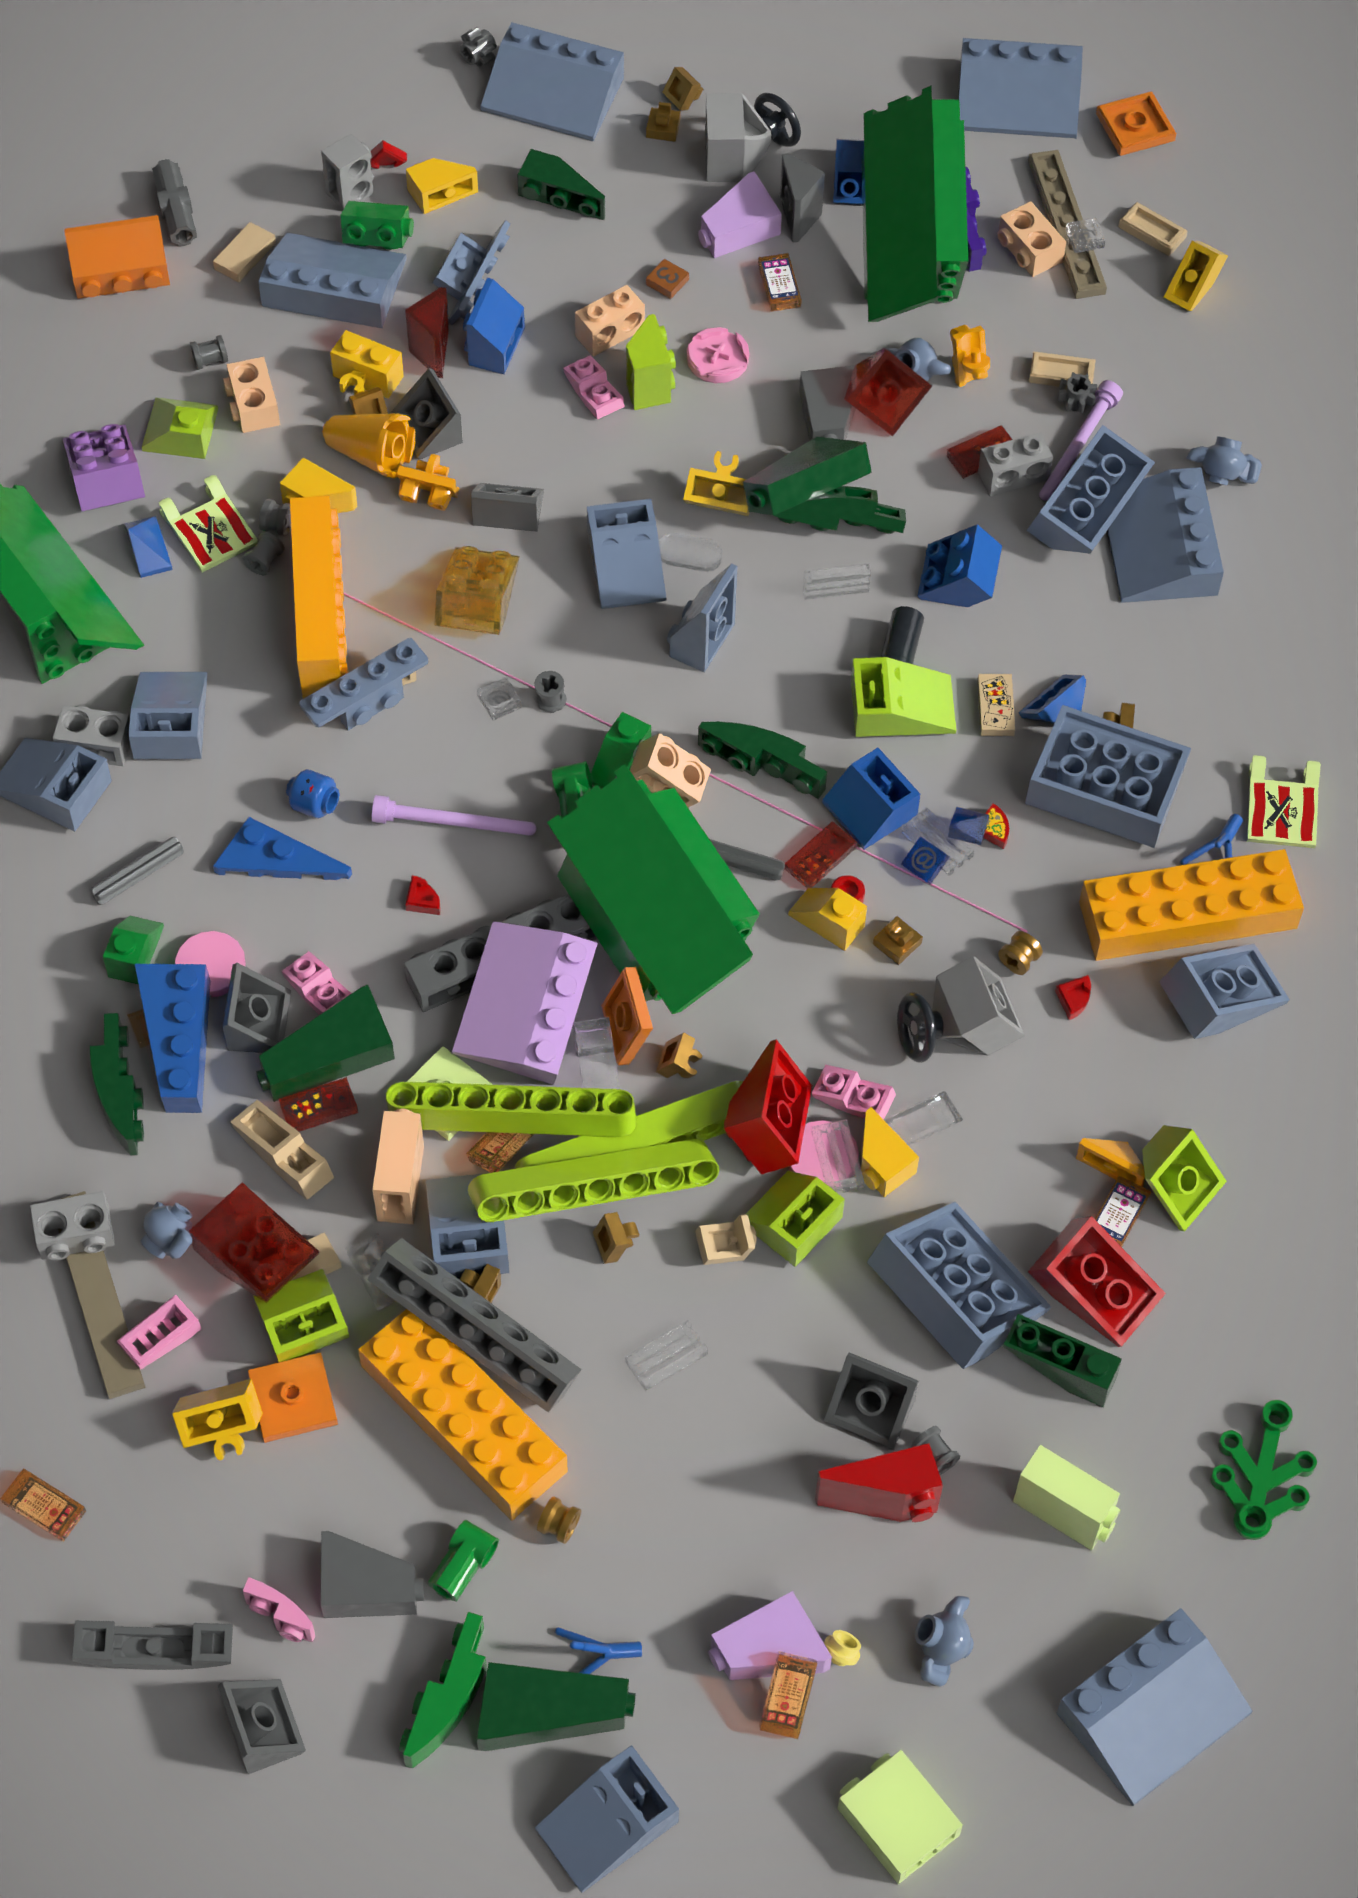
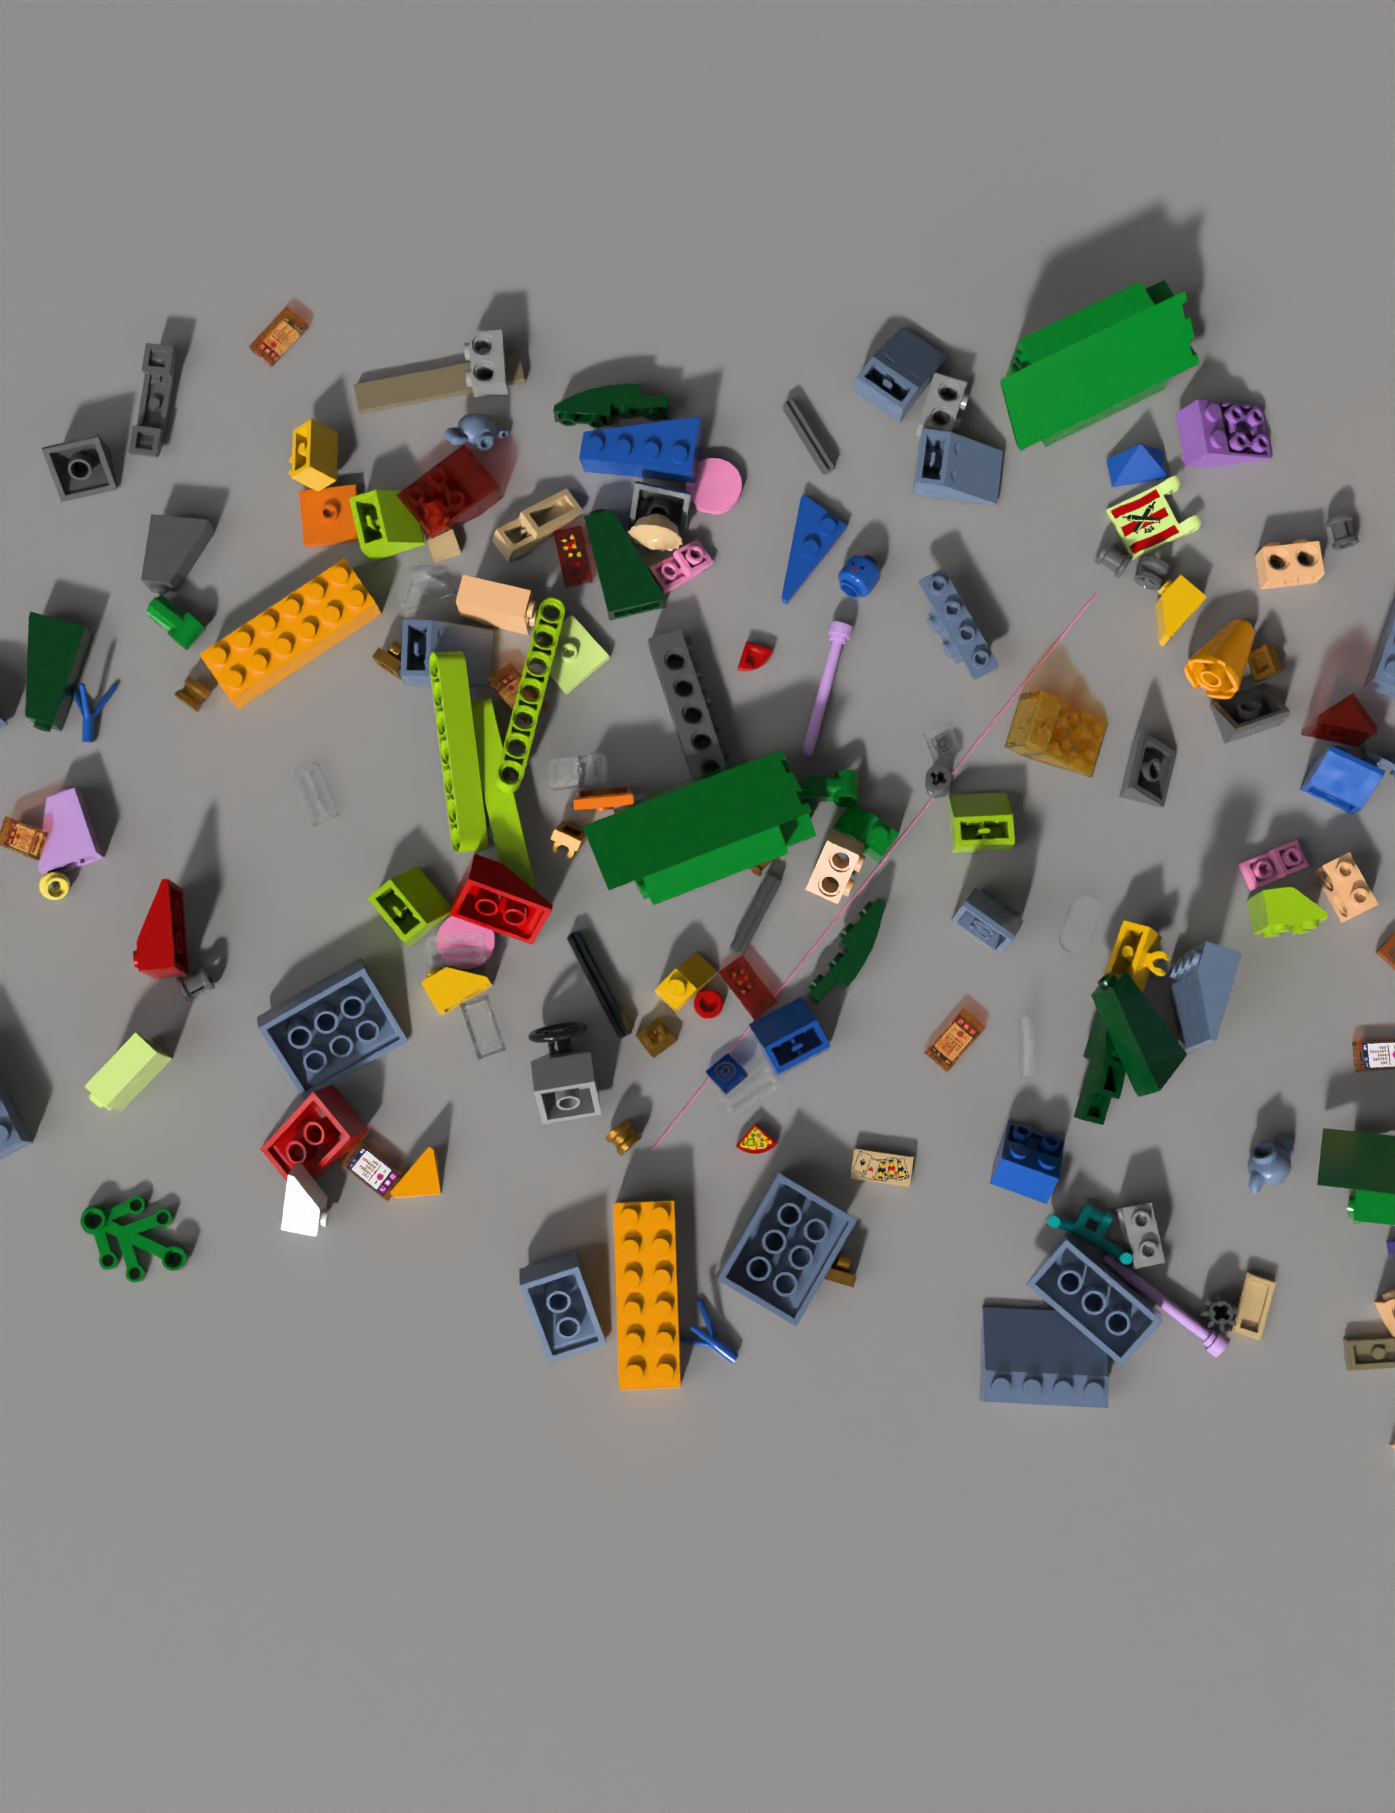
camera: 100 degrees right, 20 degrees up
(131, 944) = (735, 426): green slope -> none
(172, 1308) = (406, 438): bright pink slope -> none
(180, 428) = (1264, 504): lime slope -> none
(285, 1002) = (656, 533): none -> tan piece
(288, 1617) = (156, 496): bright pink slope -> none
(318, 592) = (1055, 594): light orange brick -> none
(366, 364) = (1311, 664): yellow brick -> none
(426, 478) = (1178, 694): light orange hips -> none
(444, 1705) = (75, 600): green slope -> none
(474, 1324) = (348, 629): dark grey brick -> none
(524, 1000) = (630, 719): lavender slope -> none
(591, 644) = (981, 822): none -> lime slope
(614, 1236) = (416, 765): pearl gold tile -> none
(626, 553) = (1075, 864): sand blue slope -> none
(718, 355) = (1302, 984): bright pink tile -> none
(726, 1241) = (398, 850): tan bracket -> none
(759, 409) = (1201, 992): none -> sand blue slope
(824, 403) = (1228, 1076): dark grey slope -> none
(836, 649) = (954, 1040): none -> clear orange tile
(846, 1005) = (599, 984): none -> black axle
(850, 1094) = (516, 976): bright pink slope -> none
(872, 1400) = (244, 941): dark grey slope -> none
(886, 390) = (1229, 1124): clear red slope -> none
(900, 699) = (891, 1083): lime slope -> none
(903, 634) = (954, 1093): black pin -> none
(944, 1640) = (42, 960): sand blue piece -> none
(966, 455) = (1167, 1211): clear red tile -> none
(968, 825) = (754, 1116): clear blue slope -> none
(969, 354) = (1269, 1214): light orange hips -> none
(1022, 505) = (1094, 1237): none -> teal piece
(1064, 1359) = (247, 1095): dark green slope -> none
(1065, 691) = (875, 1222): blue slope -> none
(1074, 995) = (580, 1177): red tile -> none
(1180, 1274) = (304, 1204): none -> white slope
(1181, 1173) = (394, 1225): lime slope -> none
(1195, 275) = (1355, 1462): yellow slope -> none
(1226, 462) = (1121, 1438): sand blue piece -> none
(1283, 810) = (738, 1402): flag -> none

